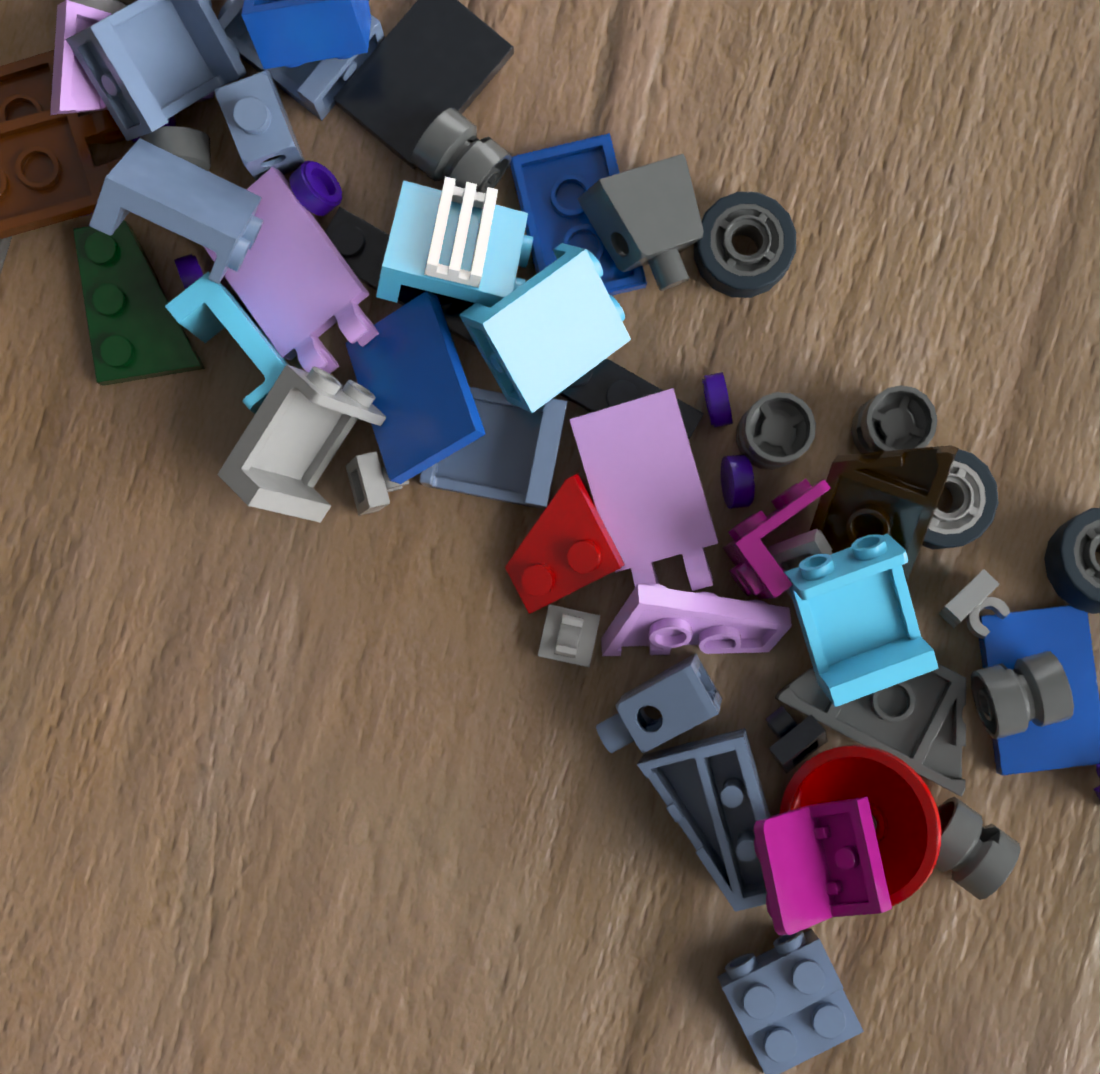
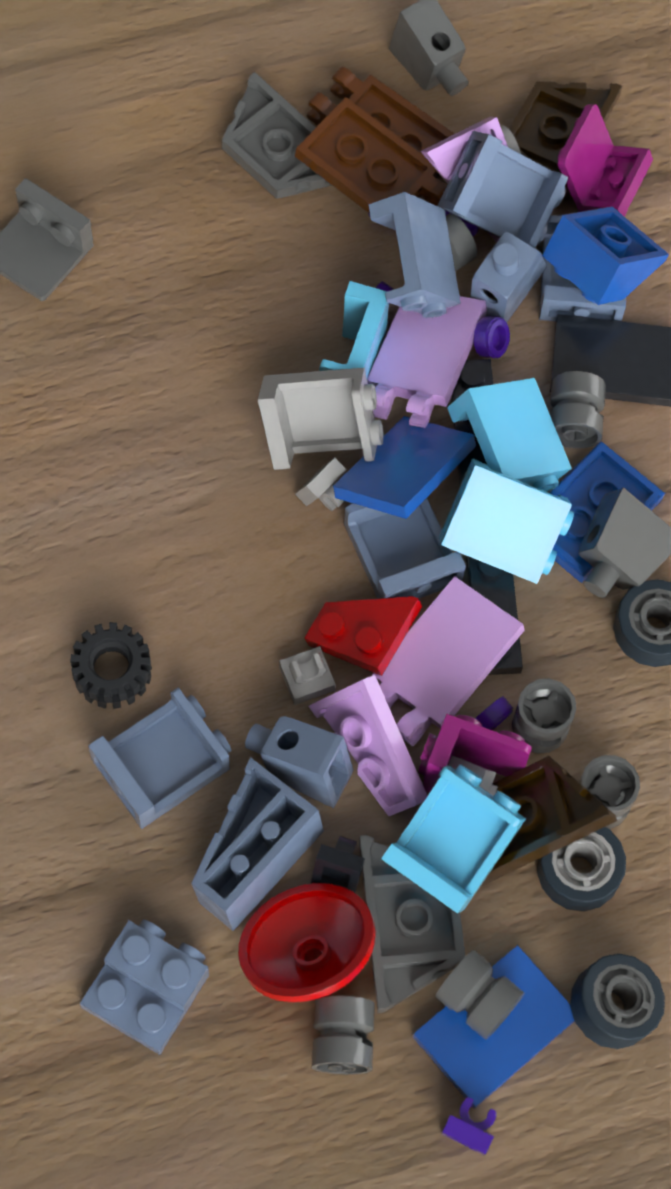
camera: 50 degrees right, 20 degrees down
(127, 312) = (318, 284): dark green wing -> none
(409, 854) = (105, 641): none -> black tyre
(468, 198) = (550, 420): white tile -> none
(565, 844) = (162, 758): none -> sand blue panel
(717, 400) = (538, 666): dark purple tile -> none
(821, 864) = (261, 913): magenta bracket -> none
(971, 601) = (522, 926): light grey tile -> none

